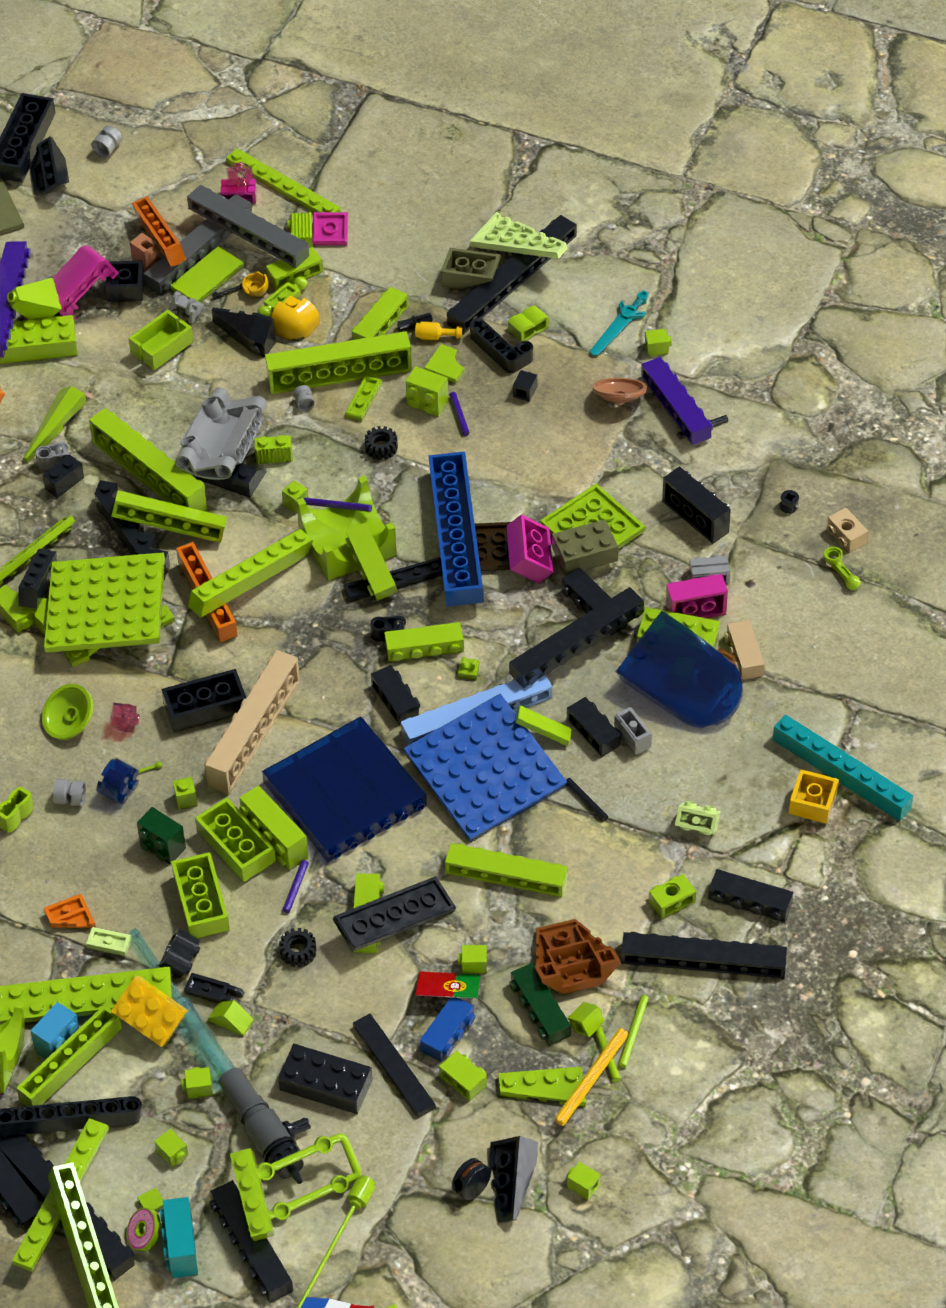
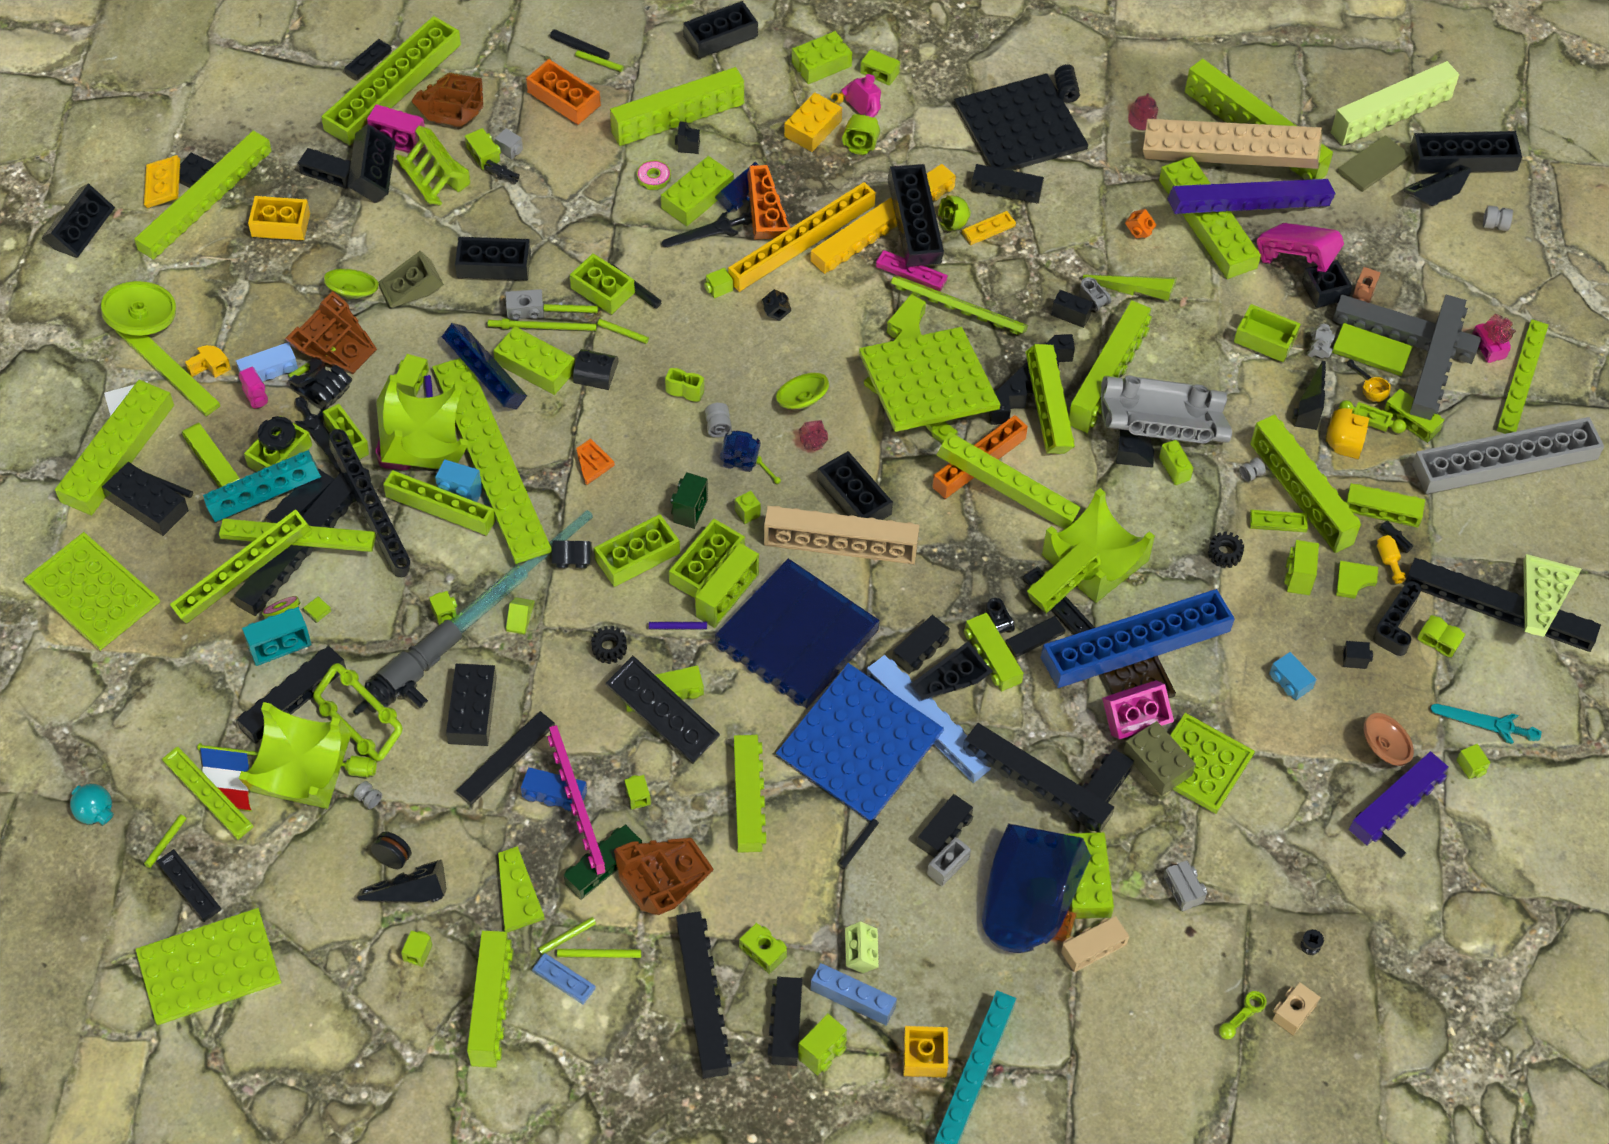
camera: 70 degrees right, 5 degrees up
(35, 299) = (1255, 215): lime slope -> none
(36, 579) = (933, 319): black brick -> none
(109, 941) = (572, 498): yellowish green plate -> none
(149, 1011) = (495, 544): yellow brick -> none
(159, 231) = (1394, 288): orange brick -> none
(171, 1148) = (371, 606): lime brick -> none
(211, 989) = (544, 590): black hinge -> none
(252, 1194) = (316, 671): lime brick -> none
(292, 493) = (1125, 496): lime brick -> none
(301, 226) = (1466, 407): lime brick -> none
(330, 228) = (1481, 426): dark pink tile -> none
(338, 504) = (1124, 530): dark purple bar -> none
(338, 1240) = (298, 758): none -> lime piece
(365, 219) = (1507, 455): none -> light grey brick
(396, 1192) = (368, 795): none -> light grey wheel
(416, 605) = (1035, 636): none -> black tile
(439, 673) = (956, 671): none -> black wedge
(448, 984) = (601, 777): sticker -> none
(457, 408) = (1295, 608): dark purple bar -> none
(463, 1075) = (506, 816): lime brick -> none
(468, 268) = (1483, 559): olive slope -> none
(468, 668) = (979, 700): lime tile -> none
(474, 1001) = (577, 807): none -> dark pink plate
(530, 435) = (1292, 676): none -> dark azure brick
(543, 725) = (925, 778): lime tile -> none
(586, 1019) = (595, 905): lime brick -> none
(591, 1077) = (531, 925): yellow axle -> none
(650, 1066) = (563, 978): none -> medium blue tile
(661, 1123) = (489, 999): none -> lime brick
(696, 504) = (1262, 849): black brick -> none
(698, 596) = (1136, 878): dark pink brick -> none
(740, 837) = (853, 994): none -> medium blue brick
(786, 867) = (823, 1044): none -> lime brick

